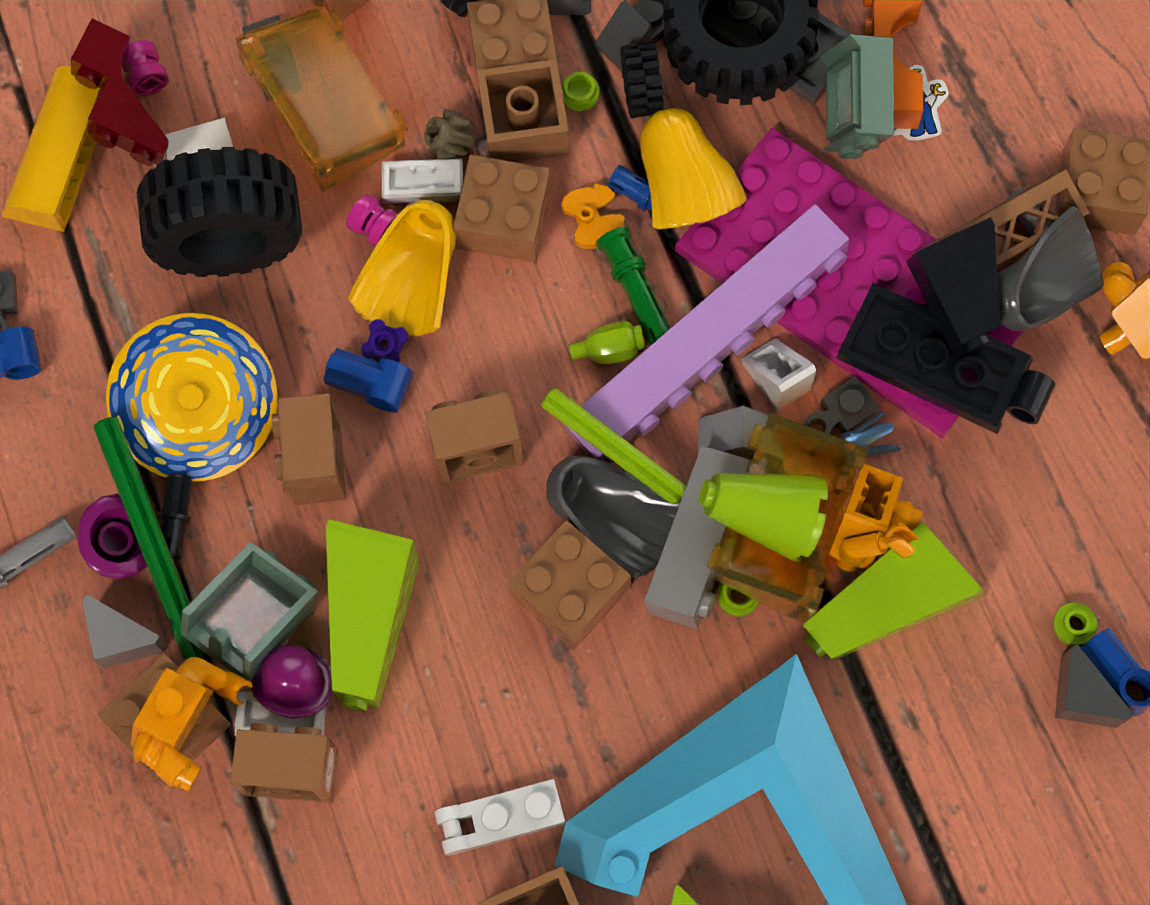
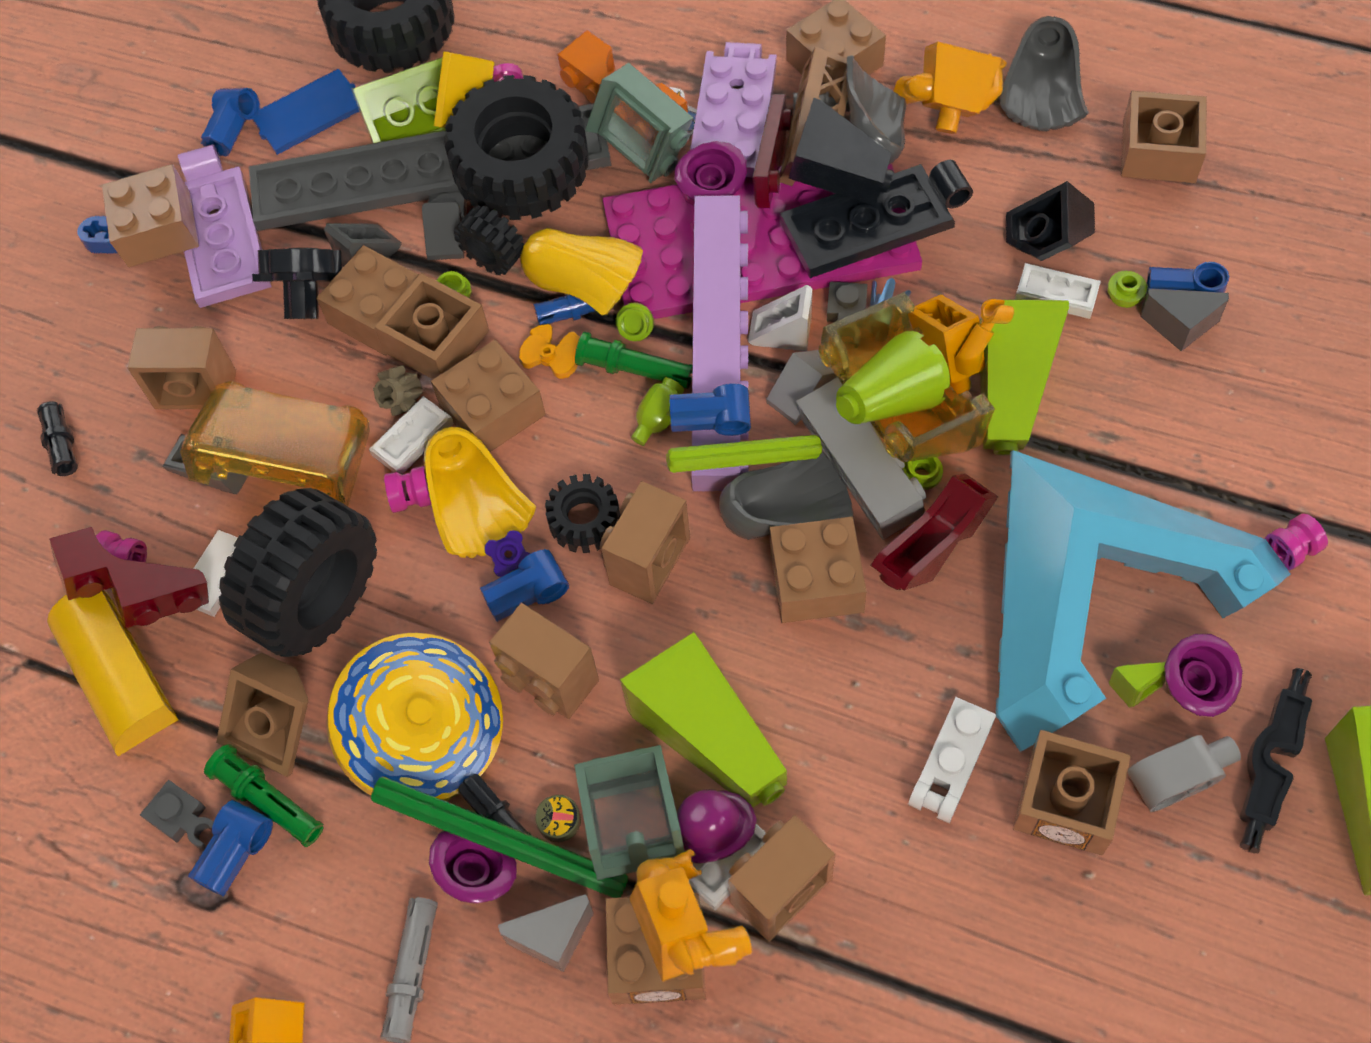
camera: 45 degrees left, 10 degrees down
(49, 326) = (249, 784): none -> green pin
(111, 286) = (264, 712): none -> medium nougat slope
(207, 562) = (558, 818): none -> tile
(461, 344) = (575, 494): none -> black tyre
(631, 397) = (722, 410): none -> blue piece
(667, 653) = (926, 544): none -> dark red arch
(674, 256) = (634, 322): none -> lime plate
(858, 194) = (711, 170): none -> magenta hat
(896, 240) = (766, 173): none -> dark red plate
(945, 162) = (732, 113): none -> lavender hinge
(1017, 568) = (1050, 284): none -> white plate
(1078, 512) = (1051, 222): none -> black slope

